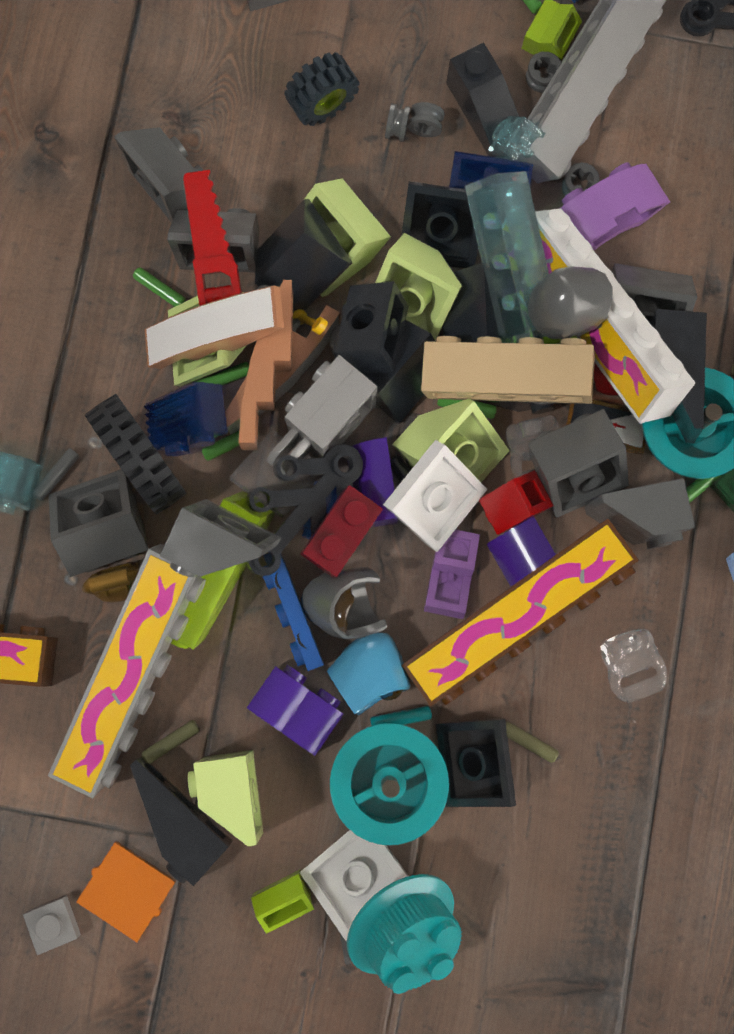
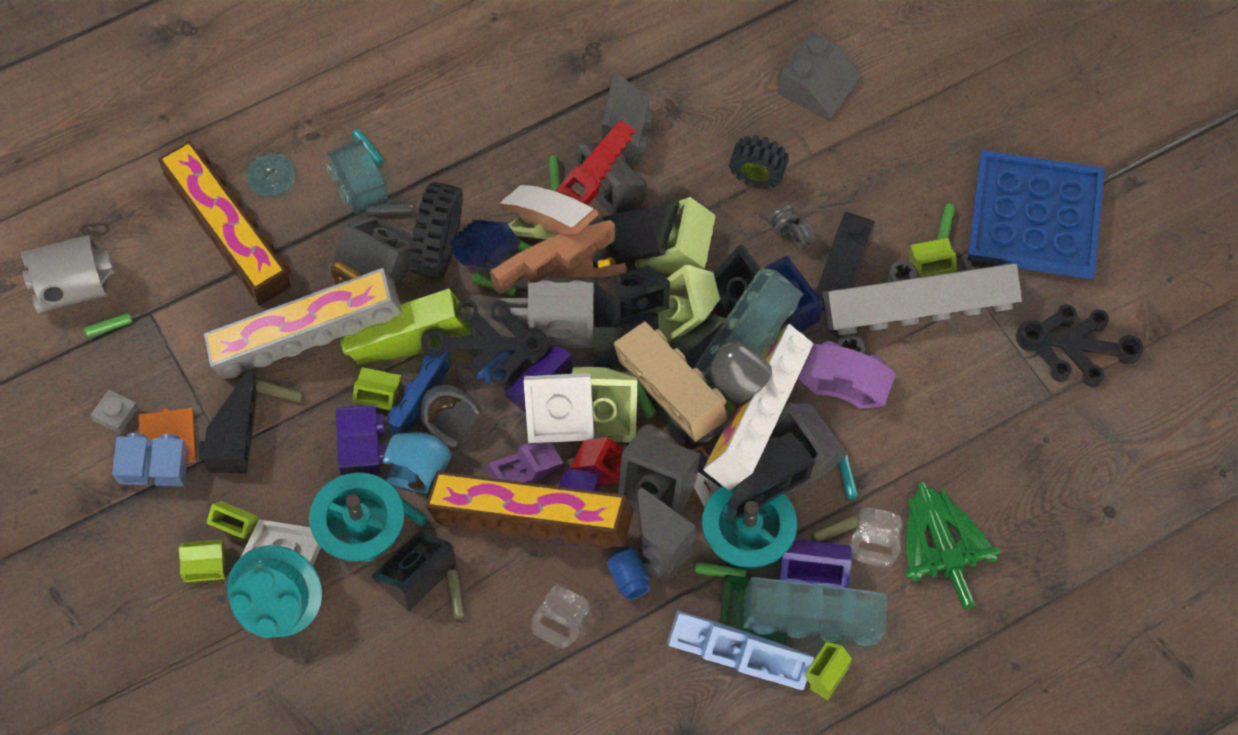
camera: 55 degrees right, 20 degrees down
(154, 926) = (141, 459): none -> medium blue piece
(213, 539) = (417, 292): dark grey slope -> none
(229, 793) = (278, 435): yellowish green slope -> none
(253, 648) = (377, 388): none -> lime piece
(296, 961) = (202, 560): none -> lime piece
(341, 531) = (488, 370): dark red plate -> none
(514, 138) = (830, 281): clear light blue plate -> none
(653, 570) = (628, 573): none -> blue brick
(710, 299) = (847, 478): none -> teal piece

